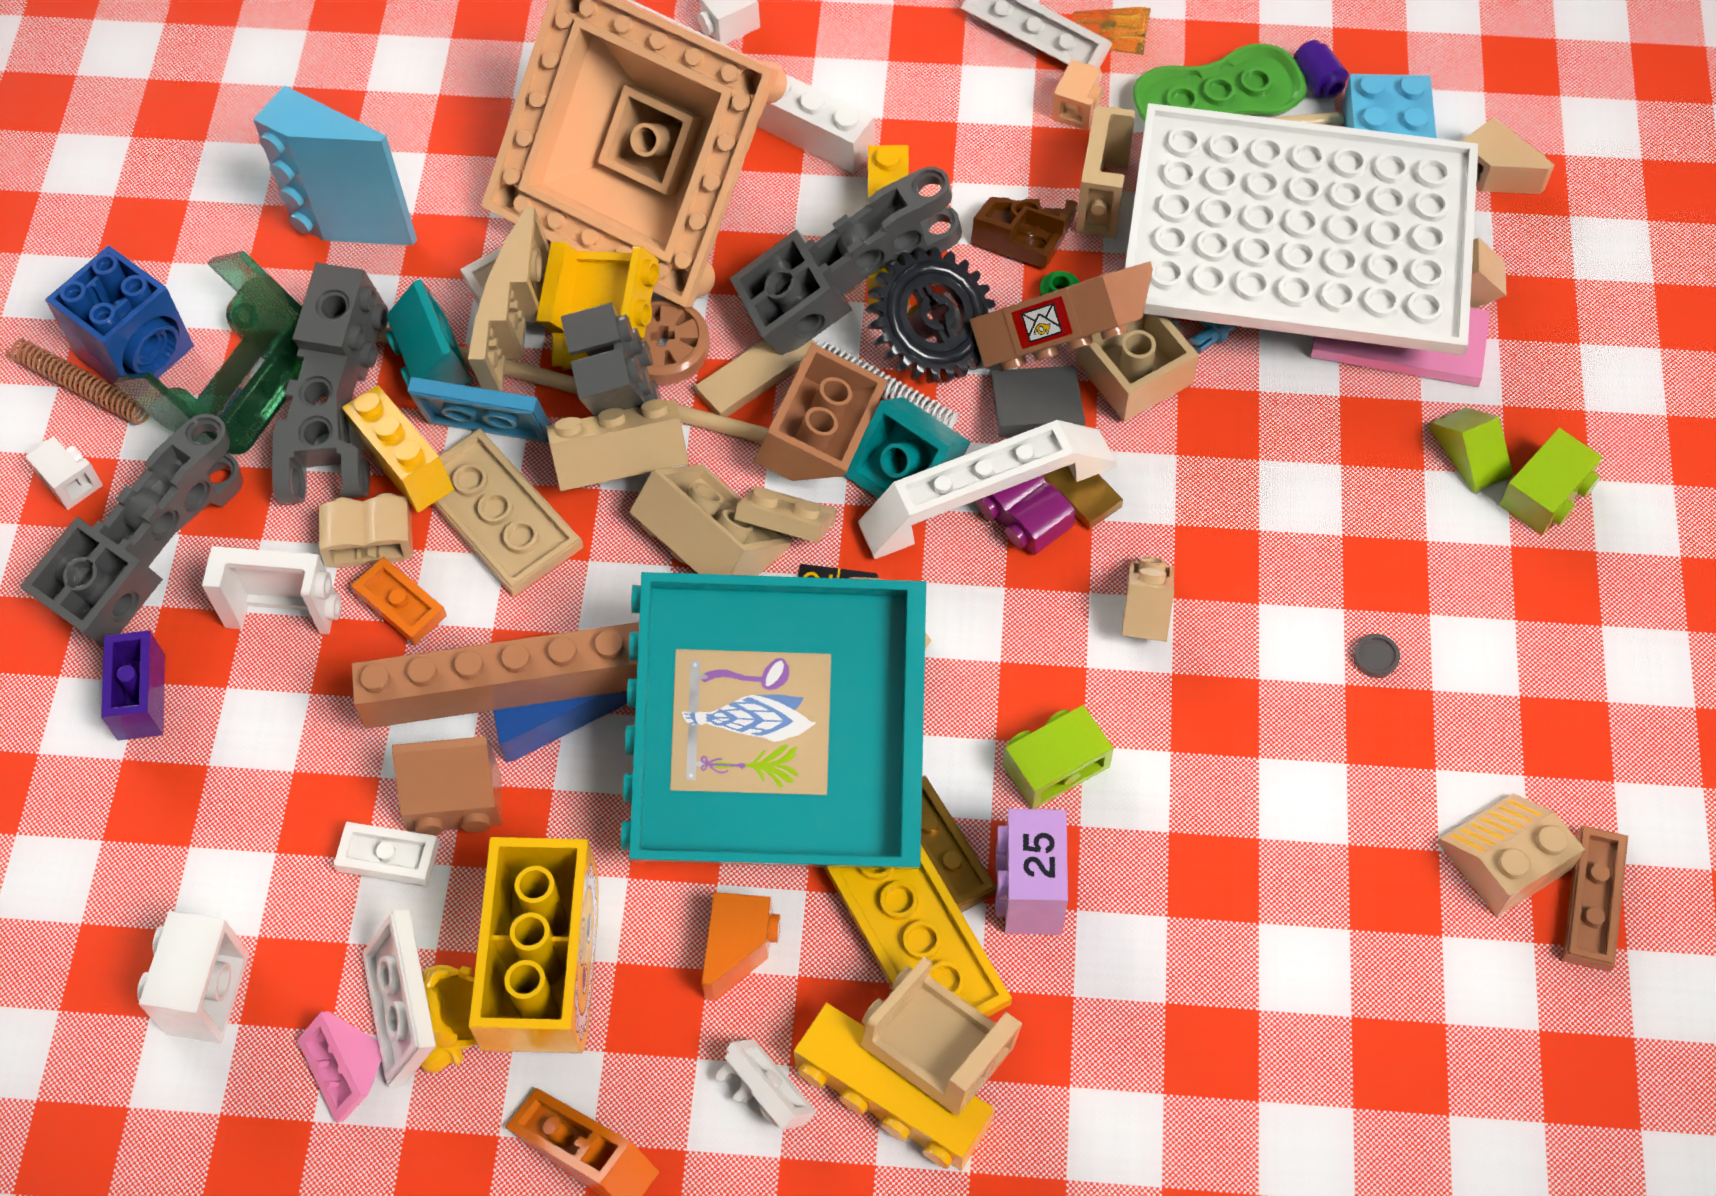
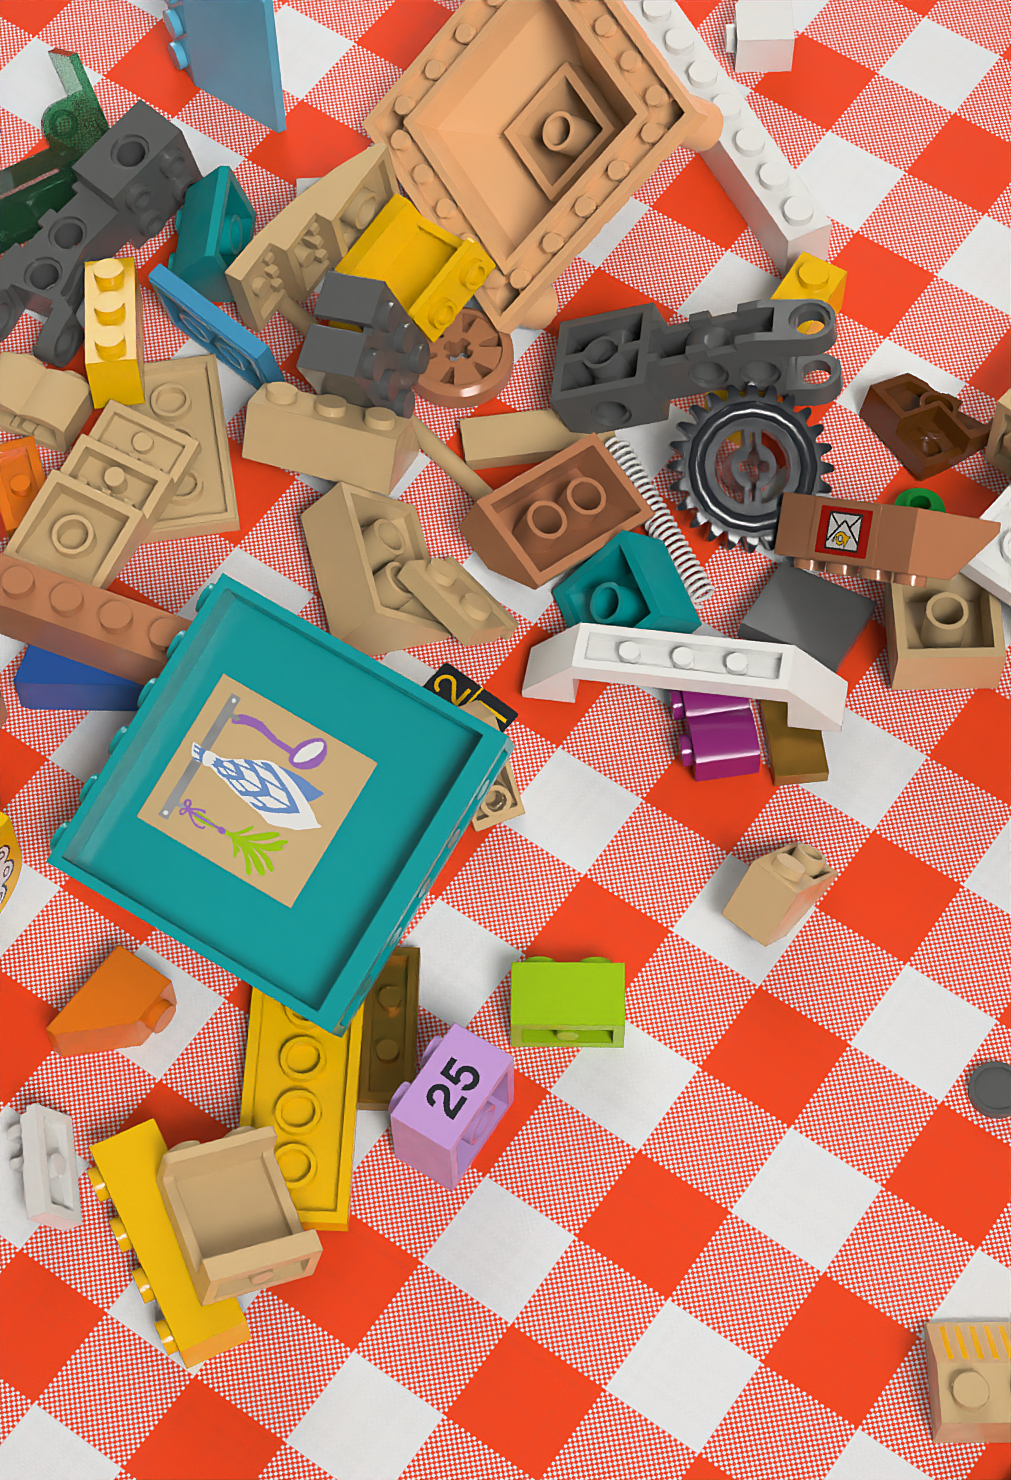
camera: 30 degrees right, 0 degrees up
(473, 572) = (104, 497): none -> tan slope

